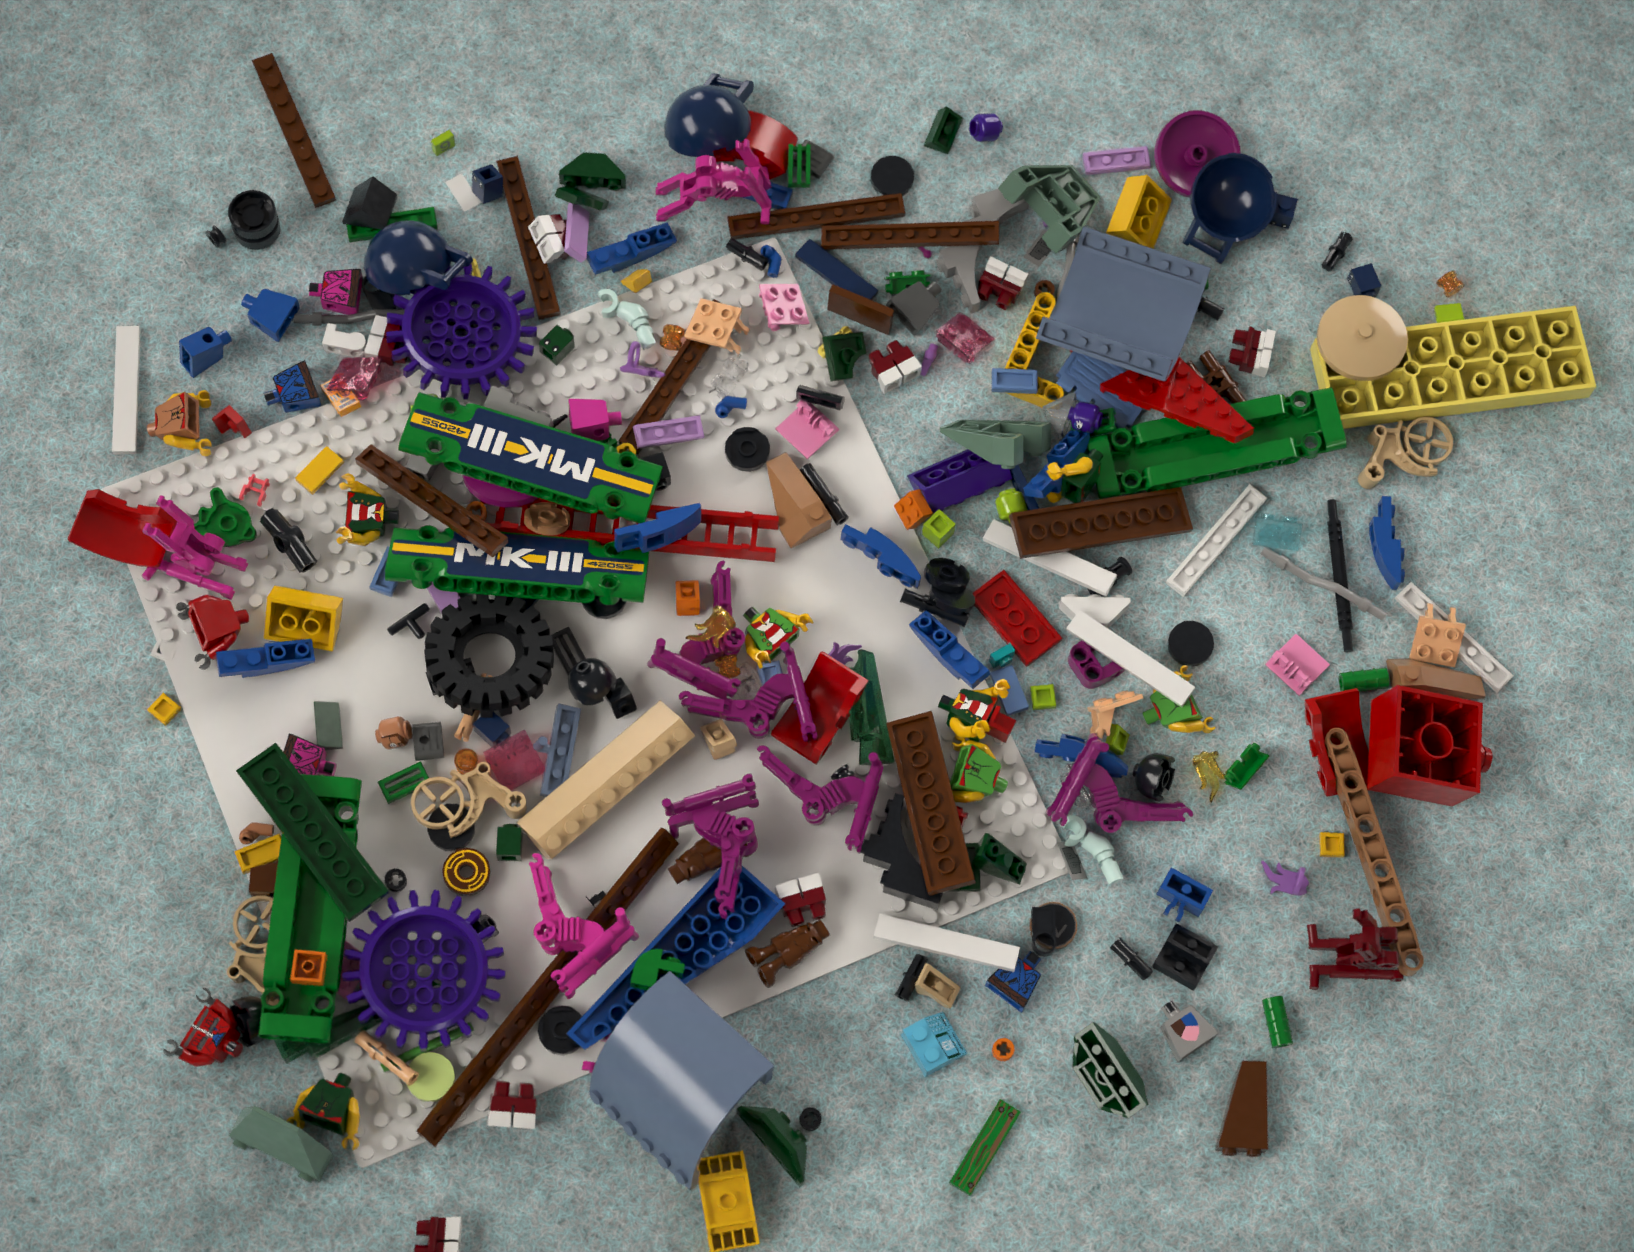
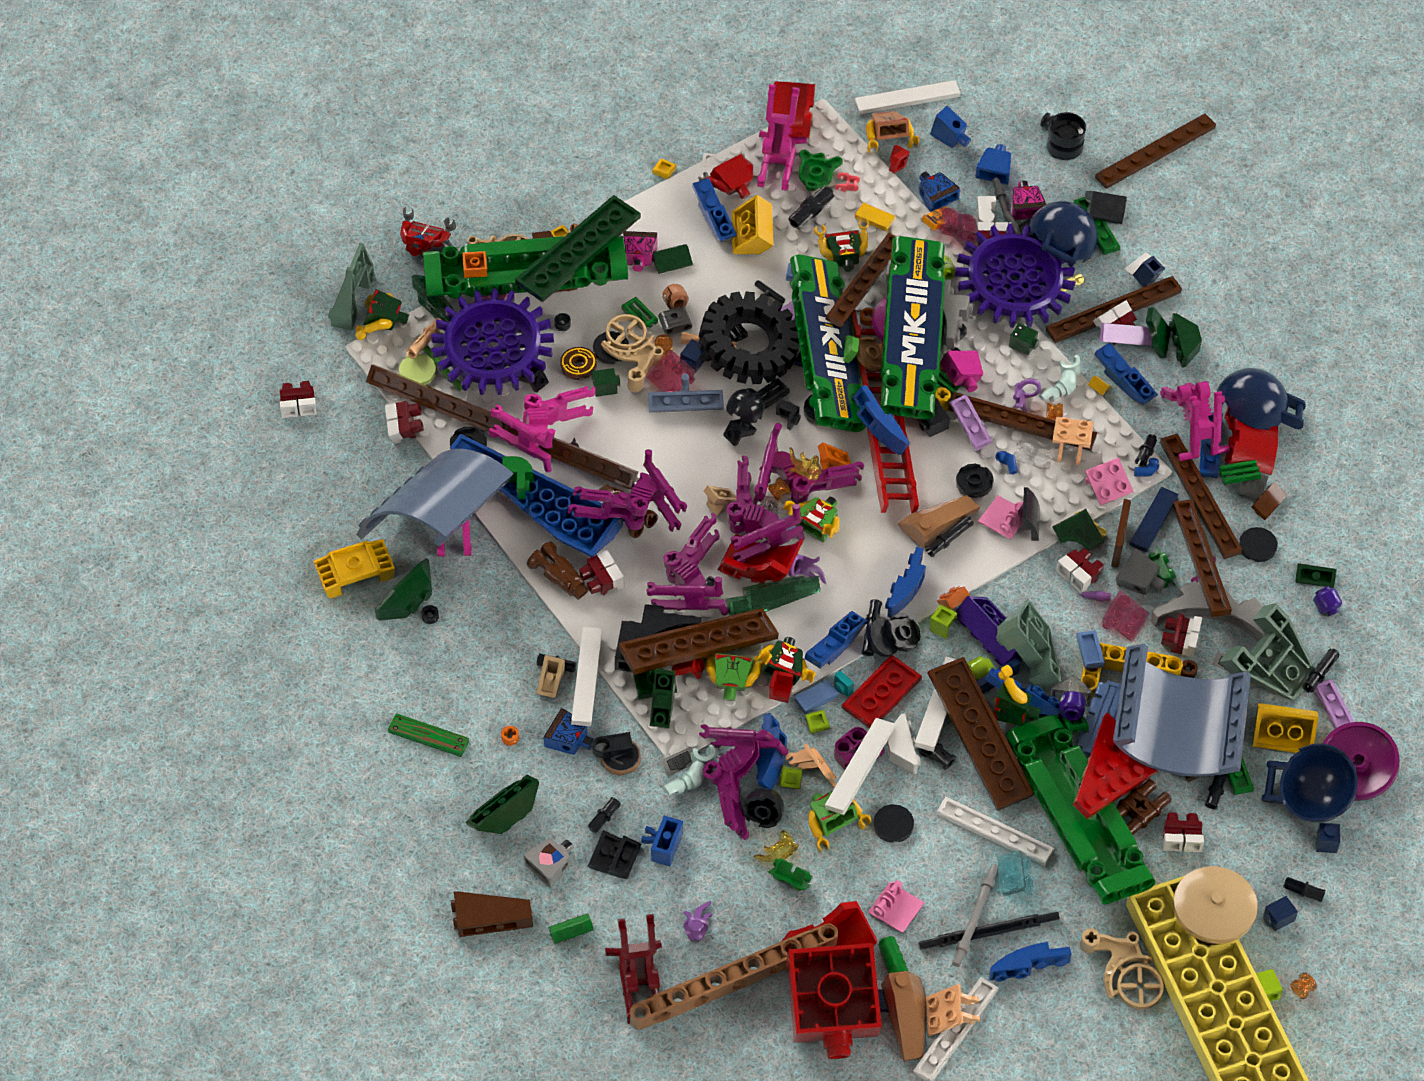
camera: 85 degrees right, 15 degrees down
(443, 142) = (1176, 240): lime tile -> none
(539, 537) = (851, 348): none -> bright green tile
(602, 634) = (788, 411): none -> black bracket
(605, 779) = (668, 431): tan slope -> none
(843, 150) = (1268, 501): none -> reddish brown slope
(933, 1043) = (504, 684): medium azure slope -> none
(1081, 164) = (1318, 674): none -> black pin
(1332, 844) = (736, 951): yellow tile -> none

